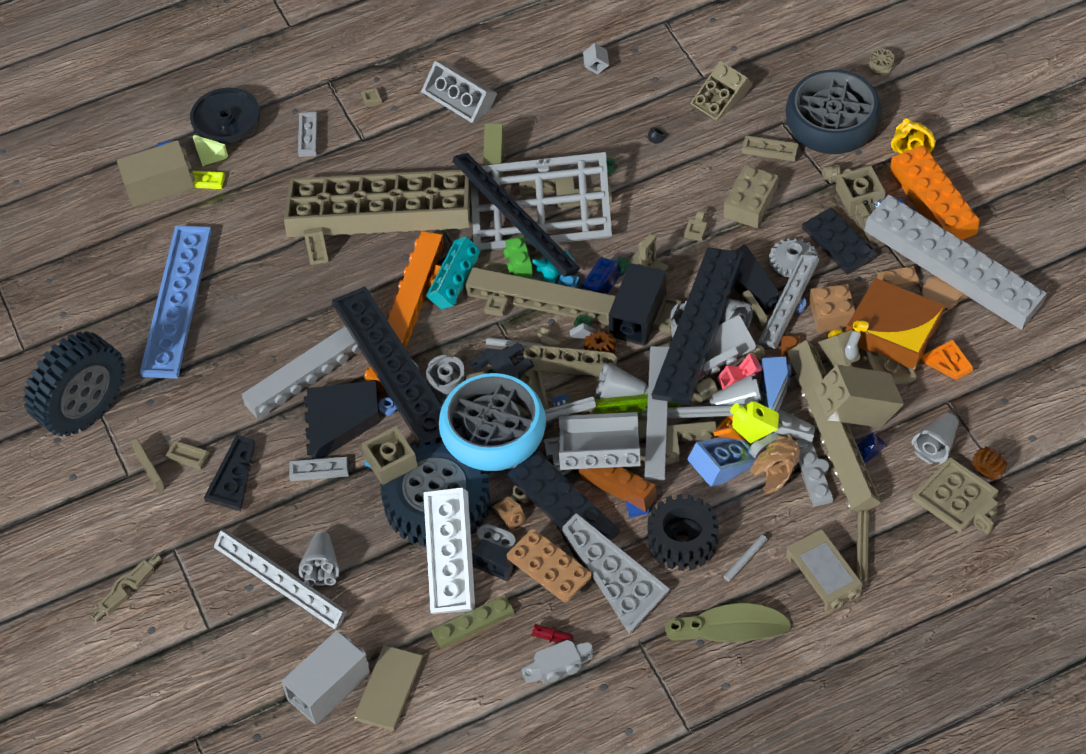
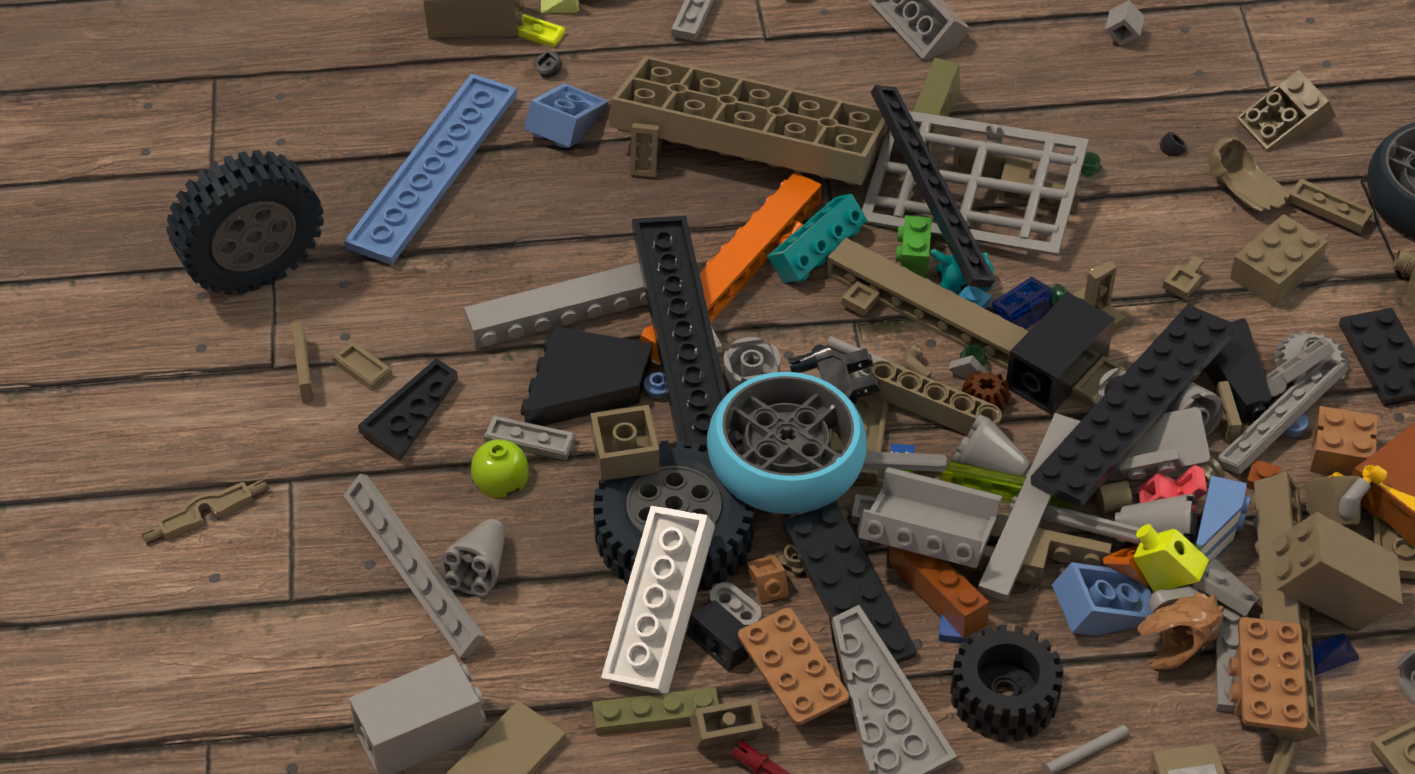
camera: 15 degrees right, 5 degrees down
(224, 202) = (548, 64): none -> black tile
(250, 236) = (564, 114): none -> medium blue slope
(308, 496) = (499, 468): none -> lime cylinder
(521, 615) = (726, 723): none -> dark tan brick
(712, 147) = (1237, 169): none -> dark tan hair
(788, 265) = (1296, 367): none -> light grey hinge
(839, 475) = (1269, 675): none -> medium nougat bracket

